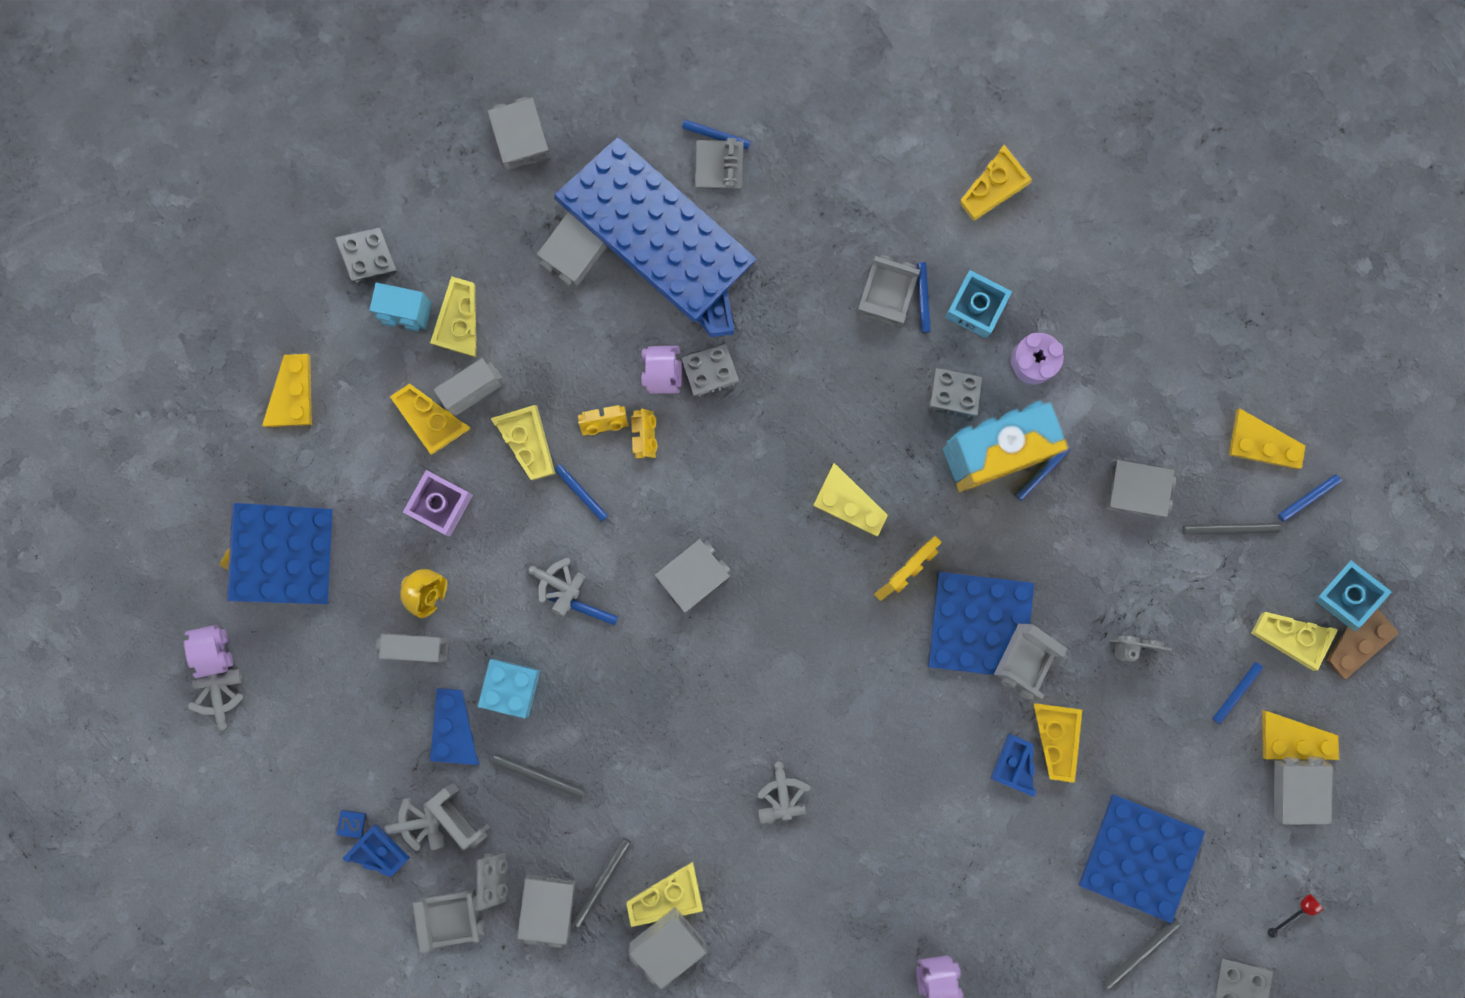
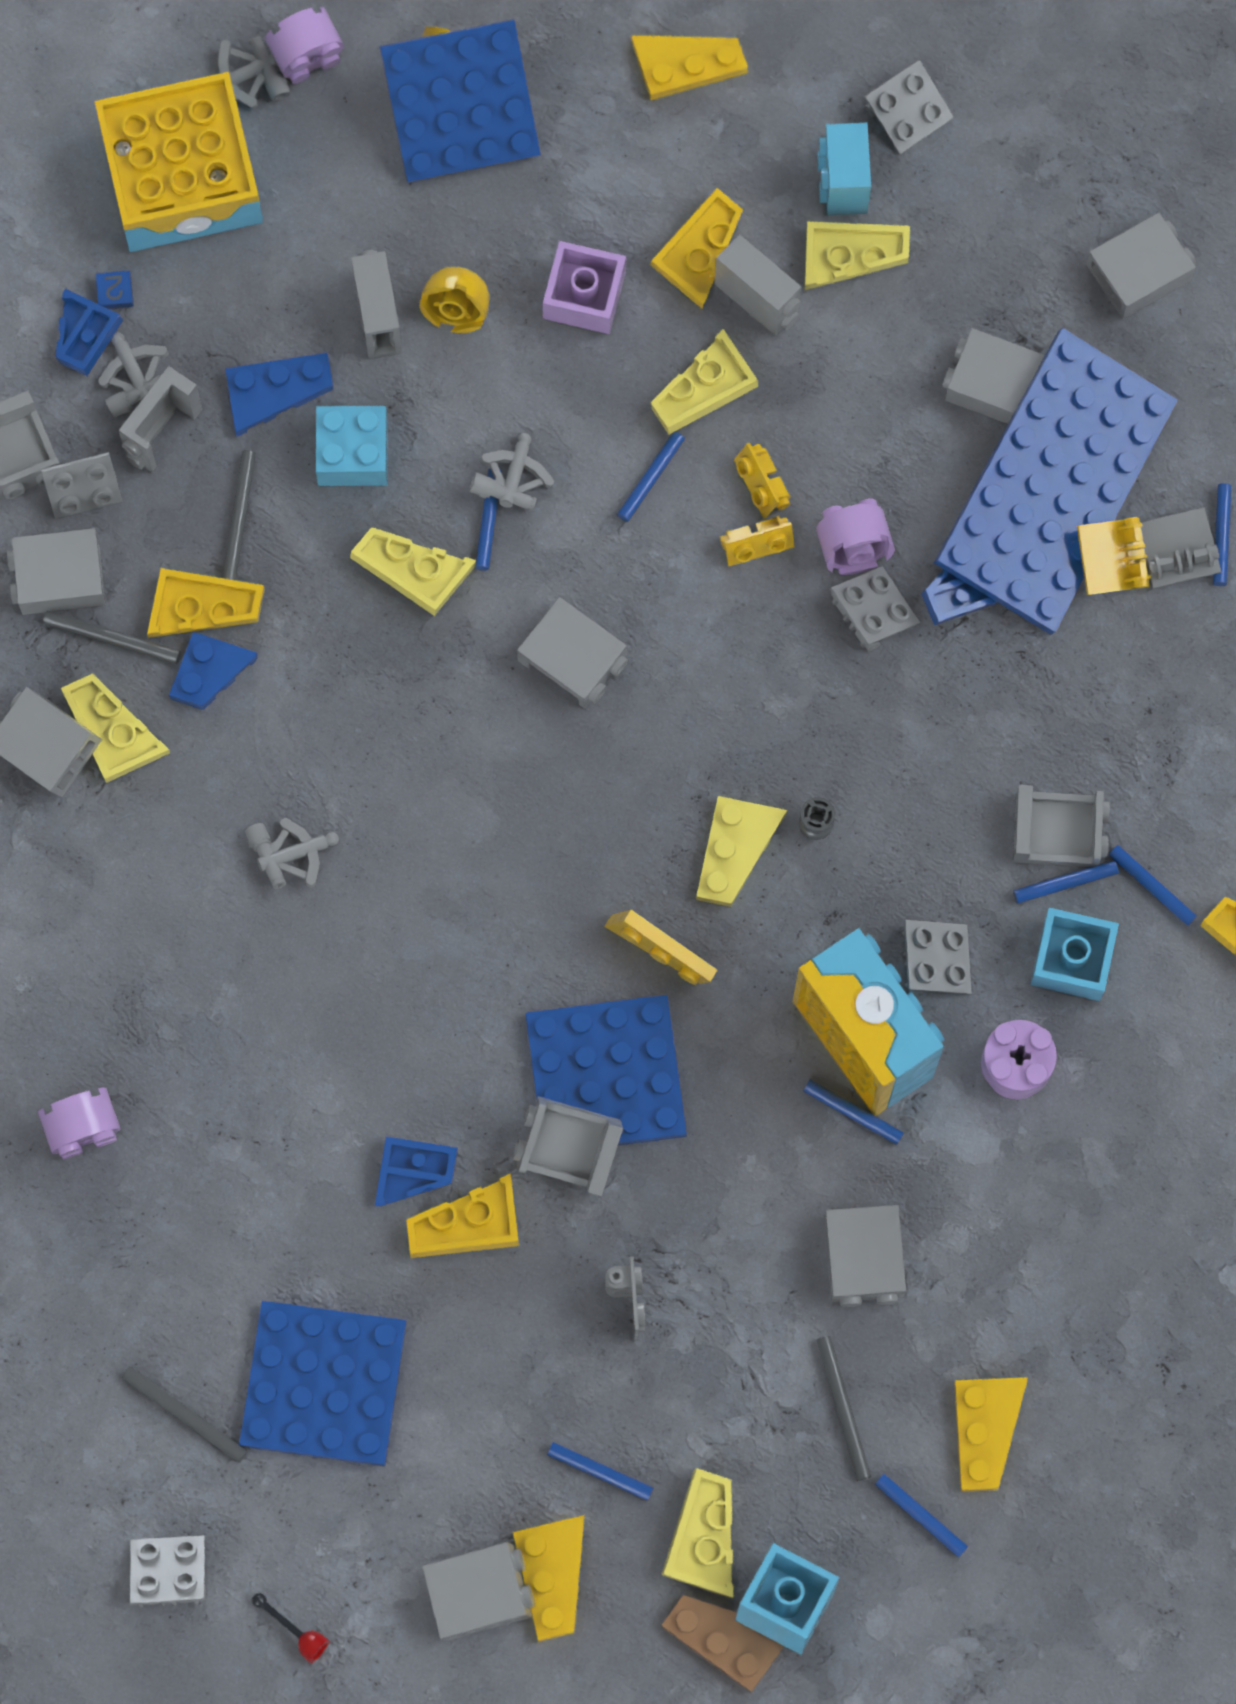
camera: 75 degrees right, 10 degrees down
(271, 761) = (179, 161): none -> yellow piece
(593, 817) = (202, 602): none -> yellow wing
(606, 667) = (415, 571): none -> light yellow wing
(641, 822) = (208, 669): none -> blue wing
(716, 205) = (1113, 556): none -> yellow hinge
(844, 448) = (818, 825): none -> dark grey wheel
(939, 243) = (1153, 885): none -> blue bar

